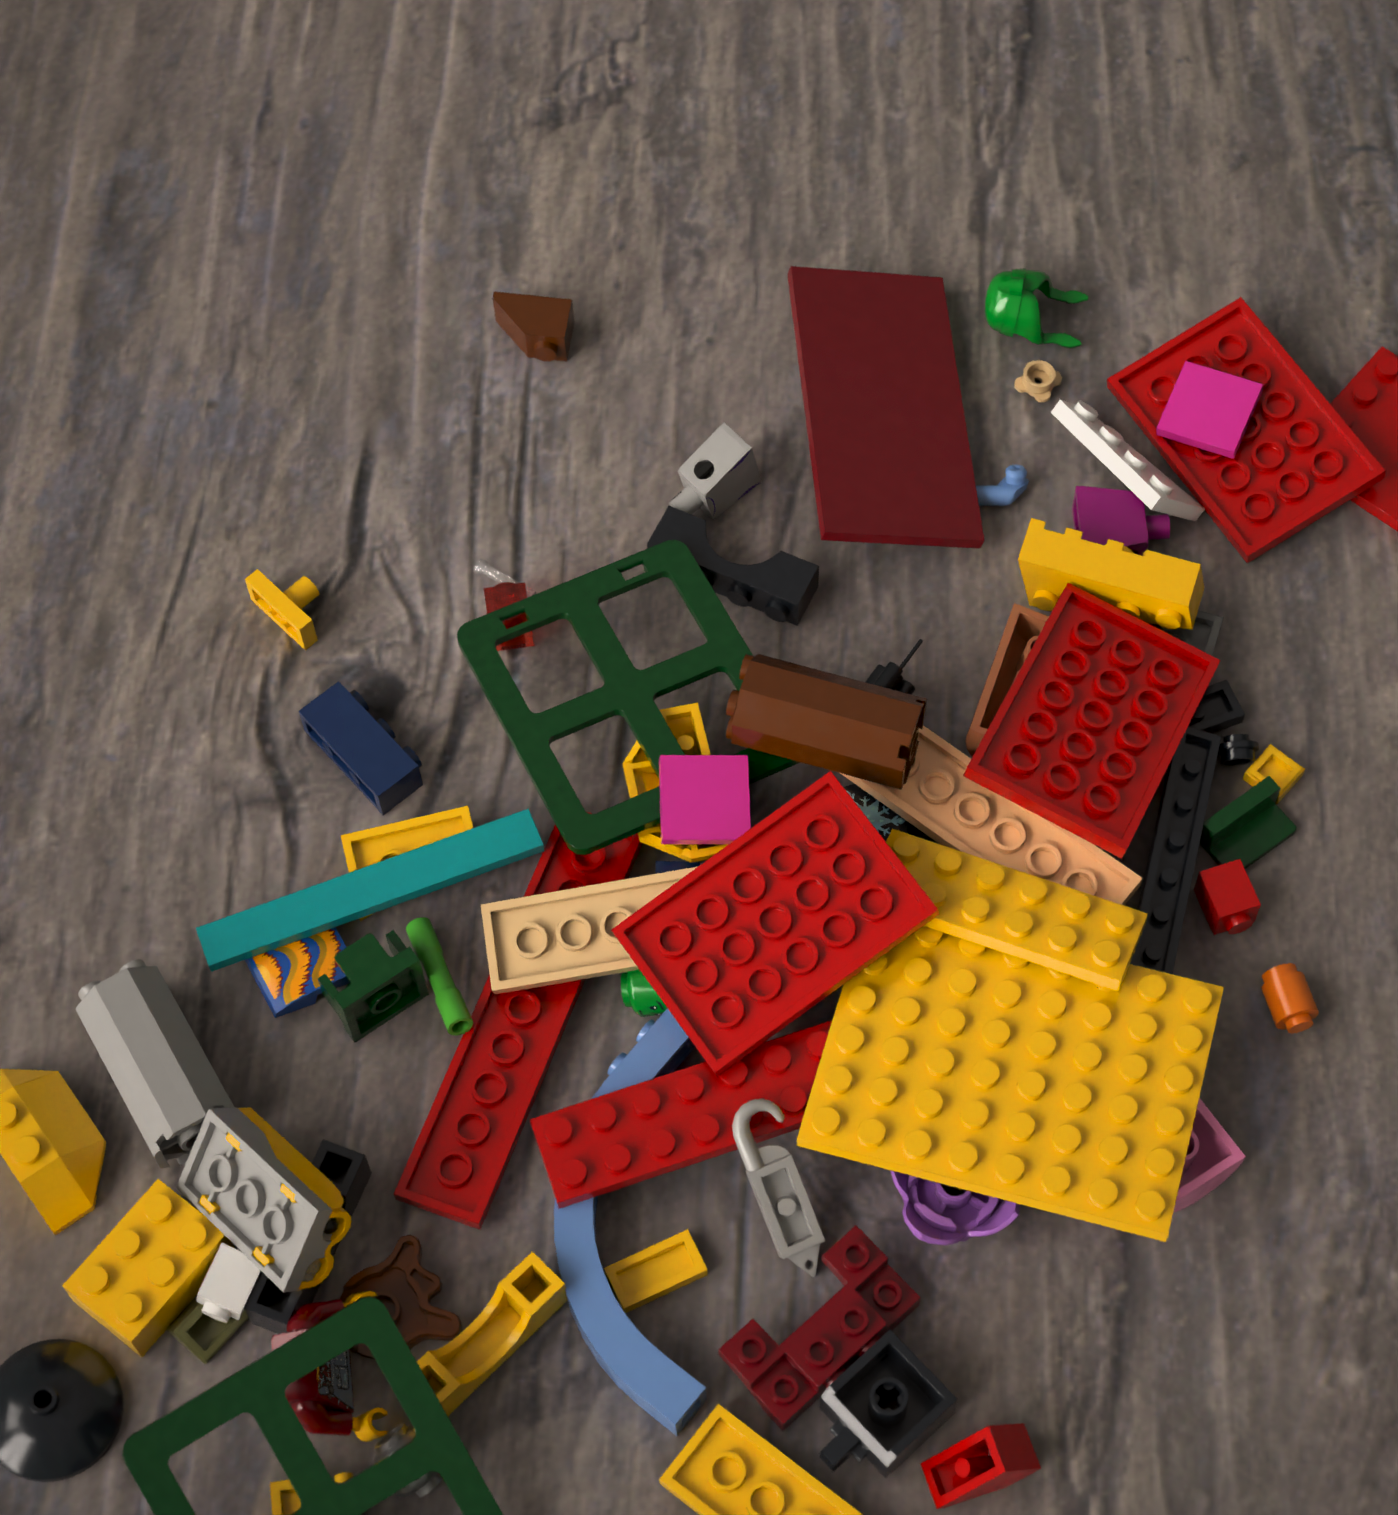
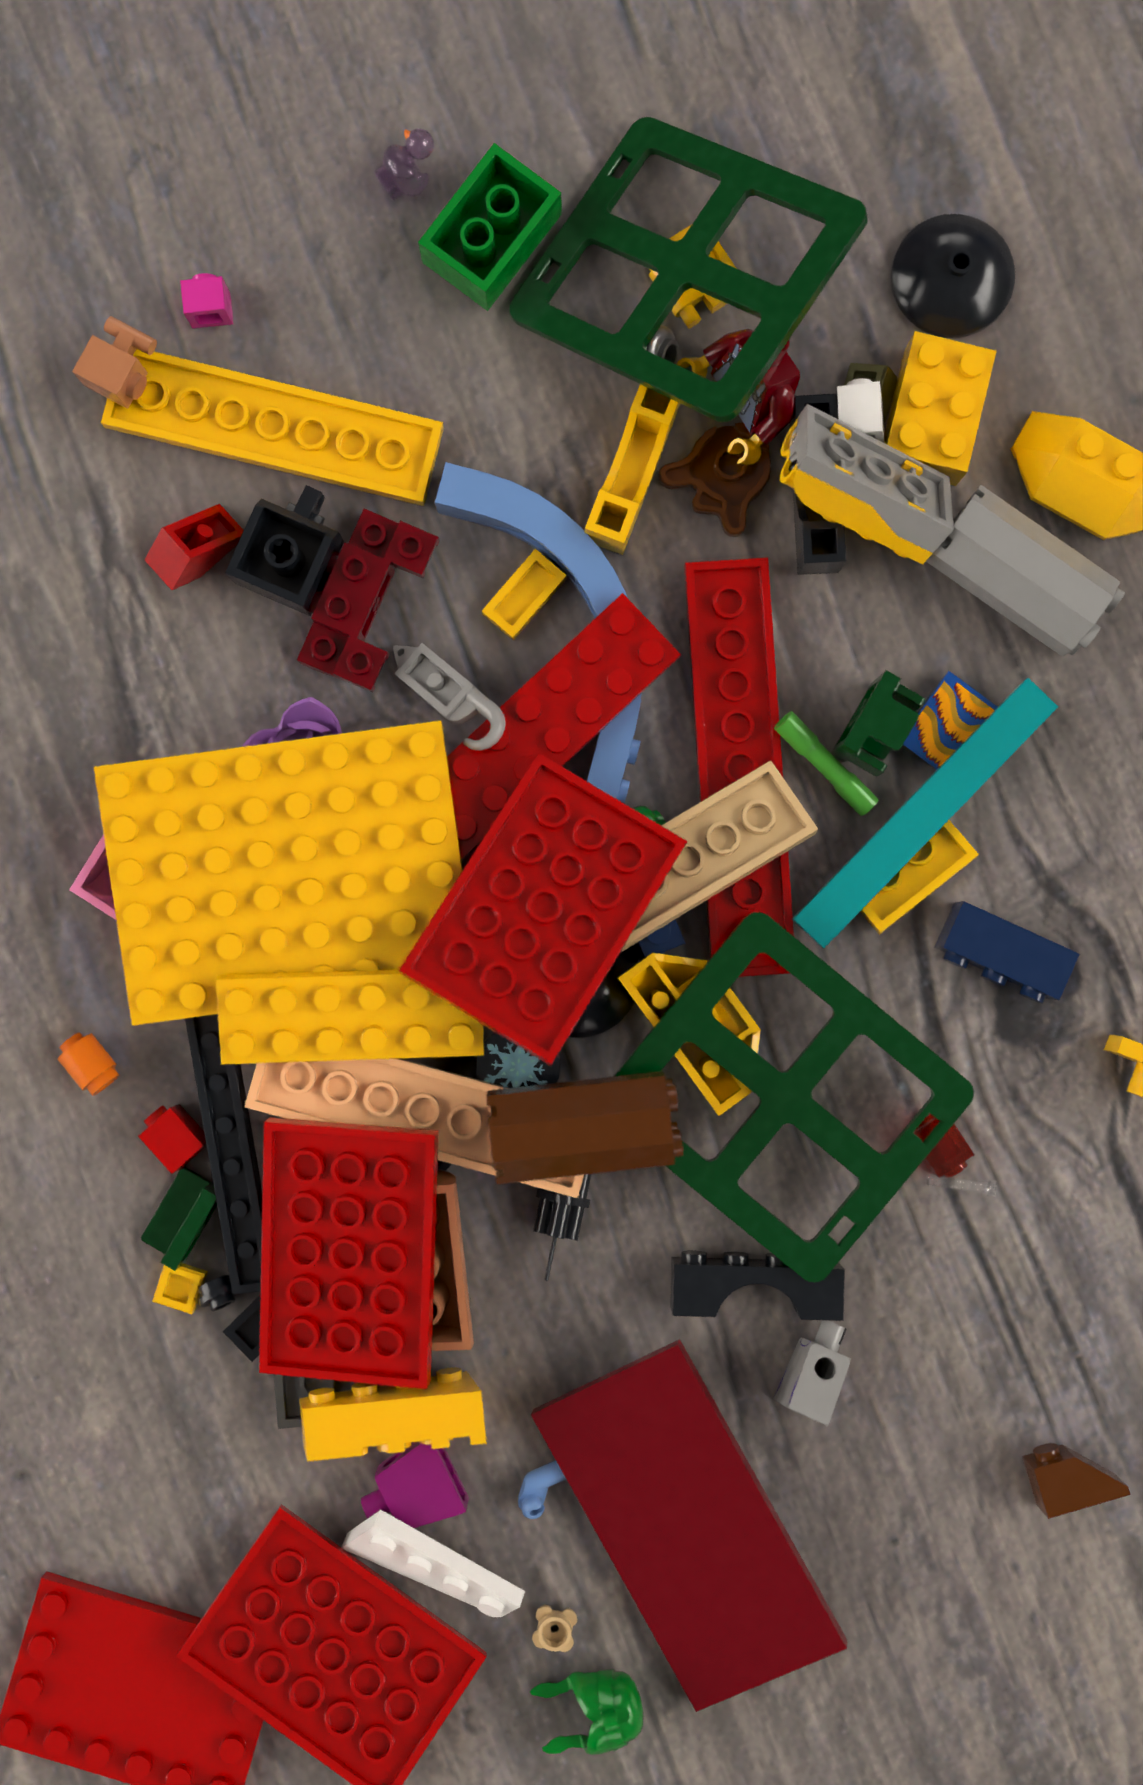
camera: 155 degrees right, 25 degrees up
(703, 798) = (663, 1008): dark pink tile -> none
(1209, 409) = (370, 1658): dark pink tile -> none

